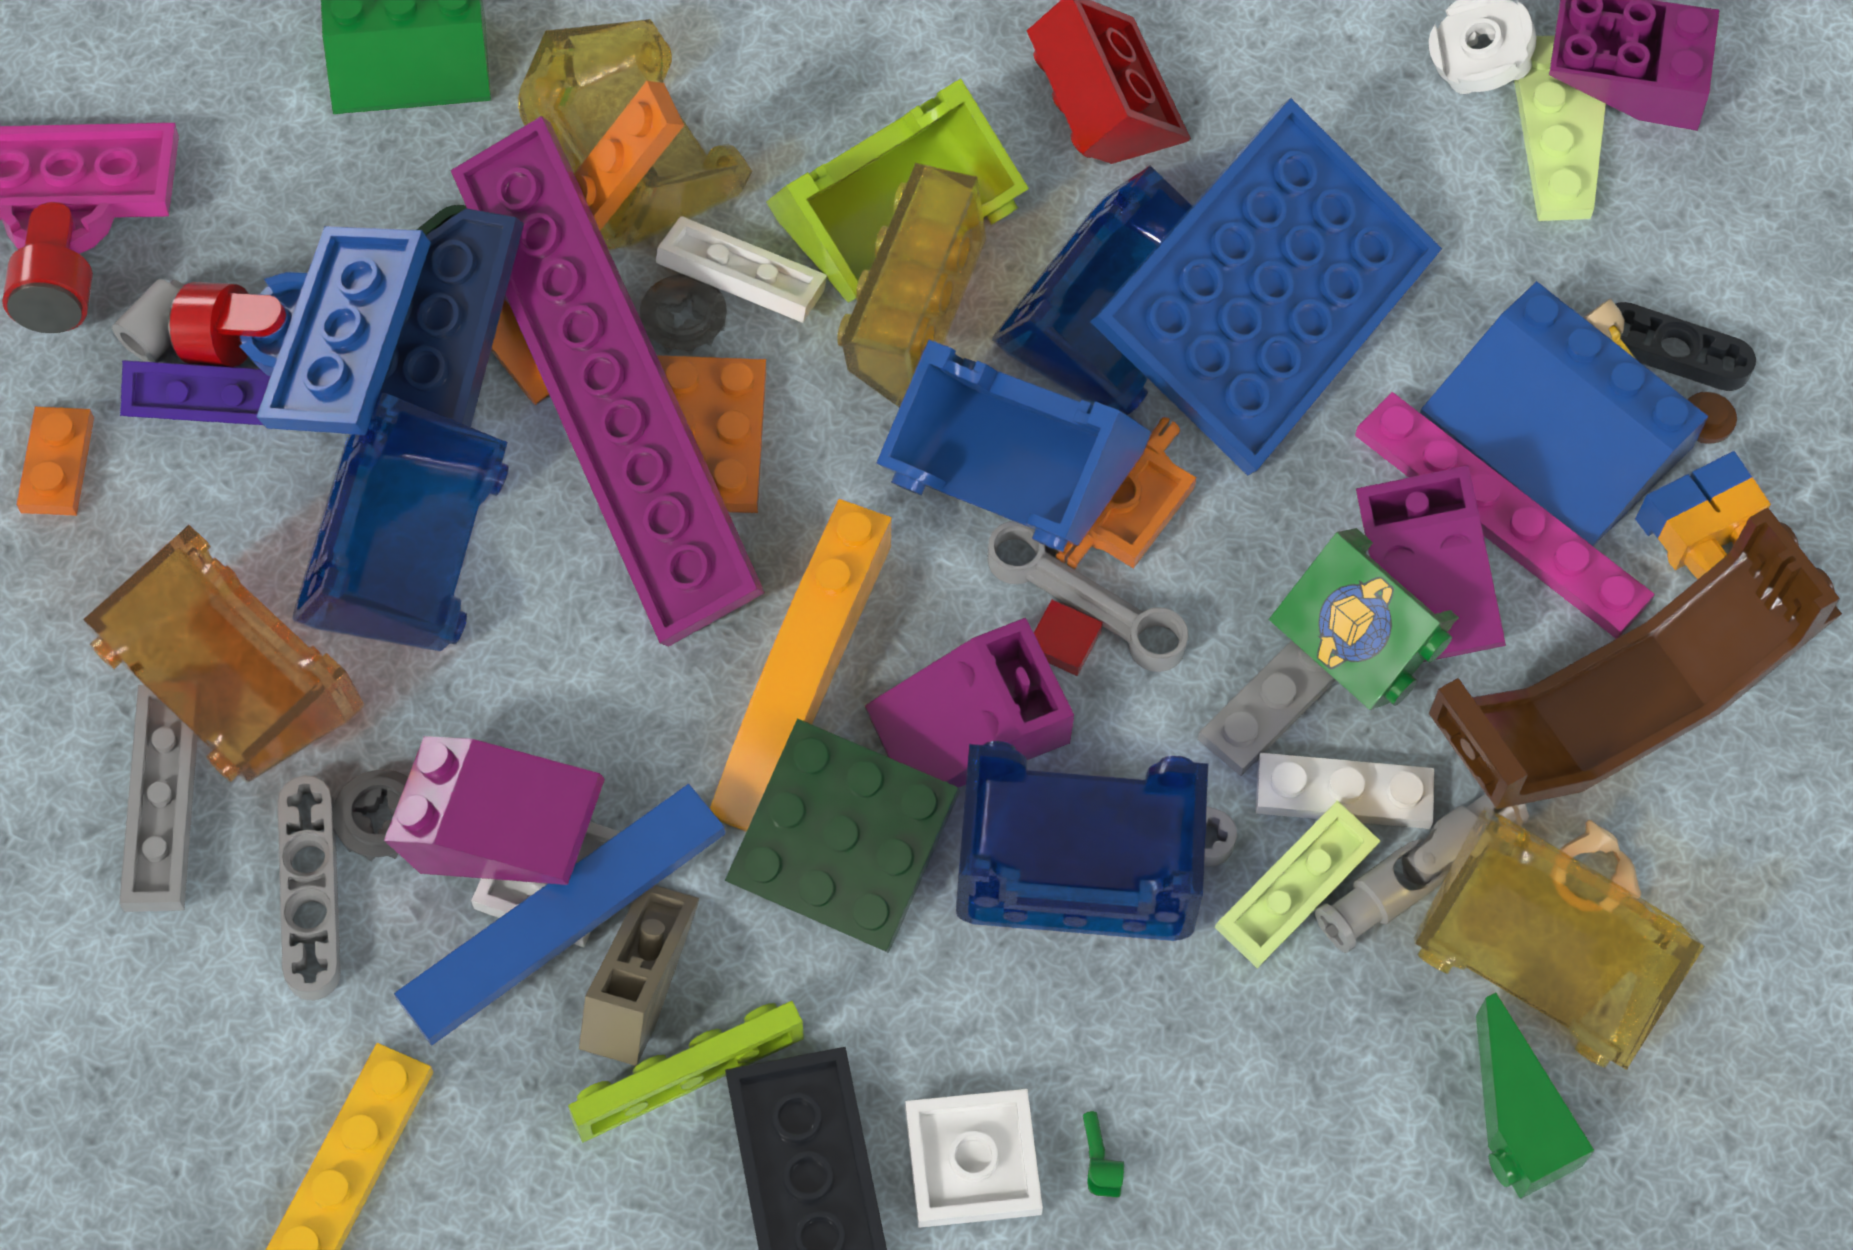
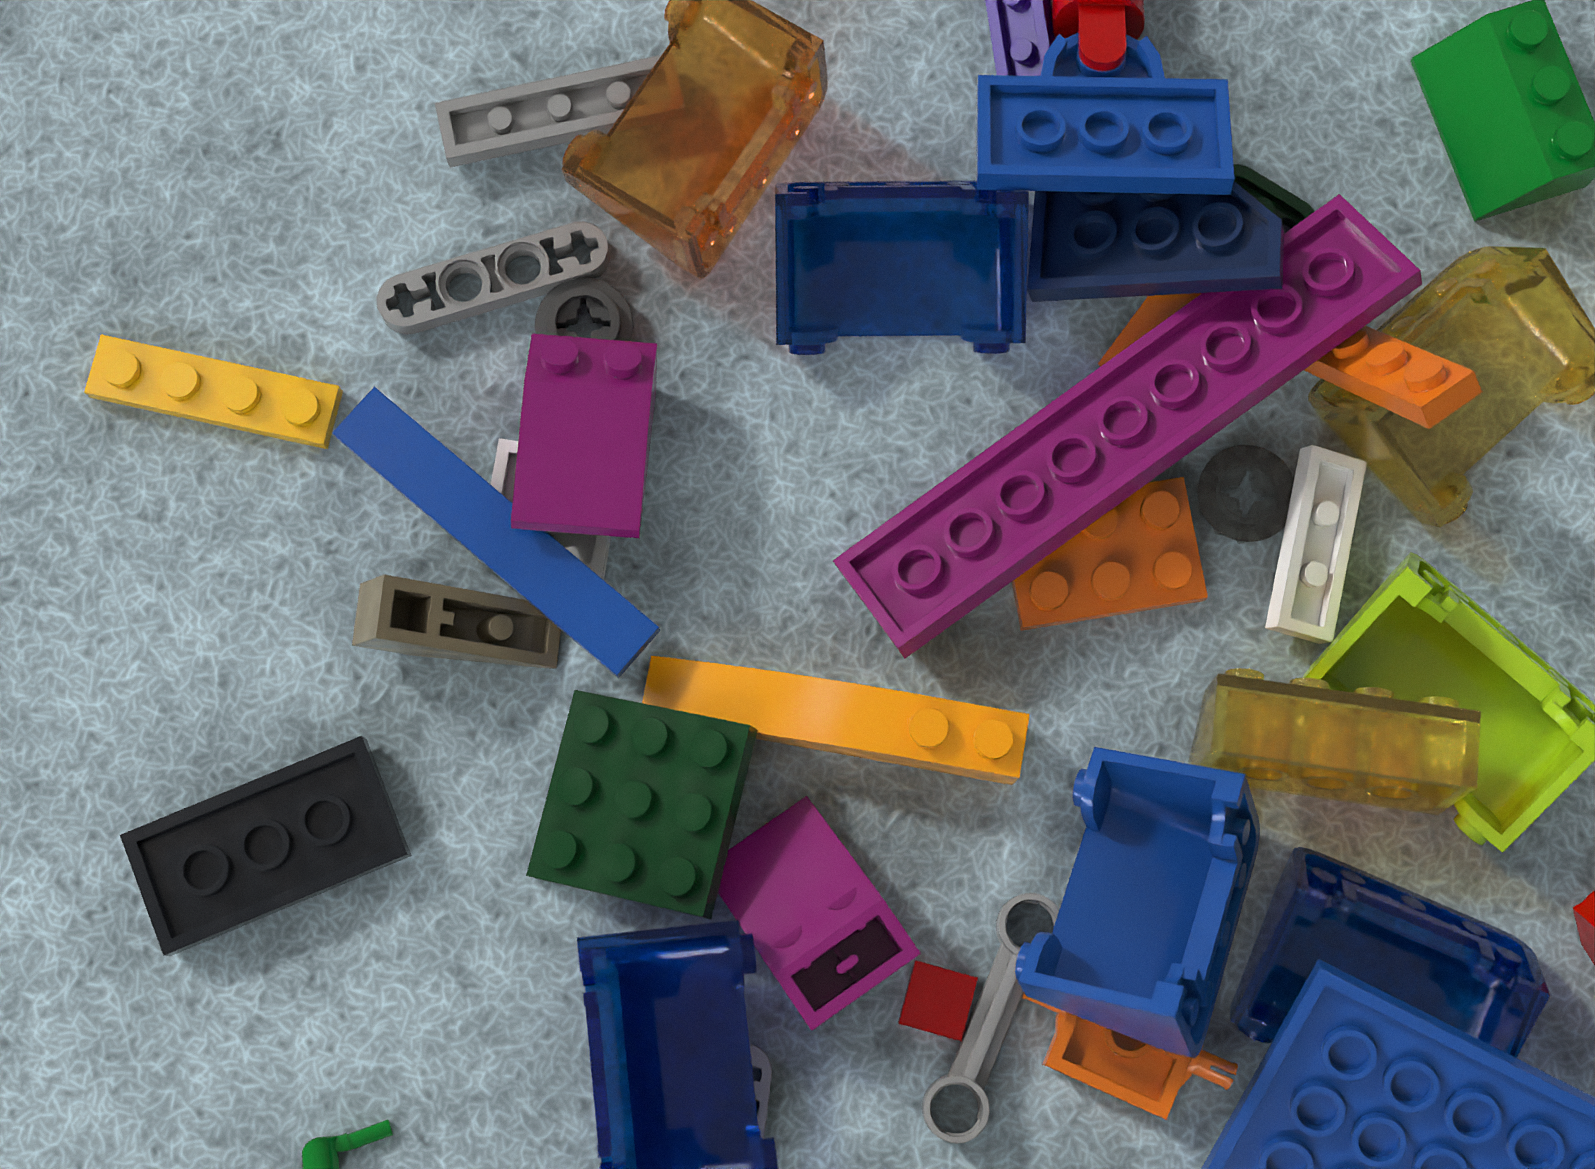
camera: 80 degrees right, 15 degrees up
(666, 1079) = (342, 673): lime plate -> none
(973, 1158) = (314, 1012): white plate -> none

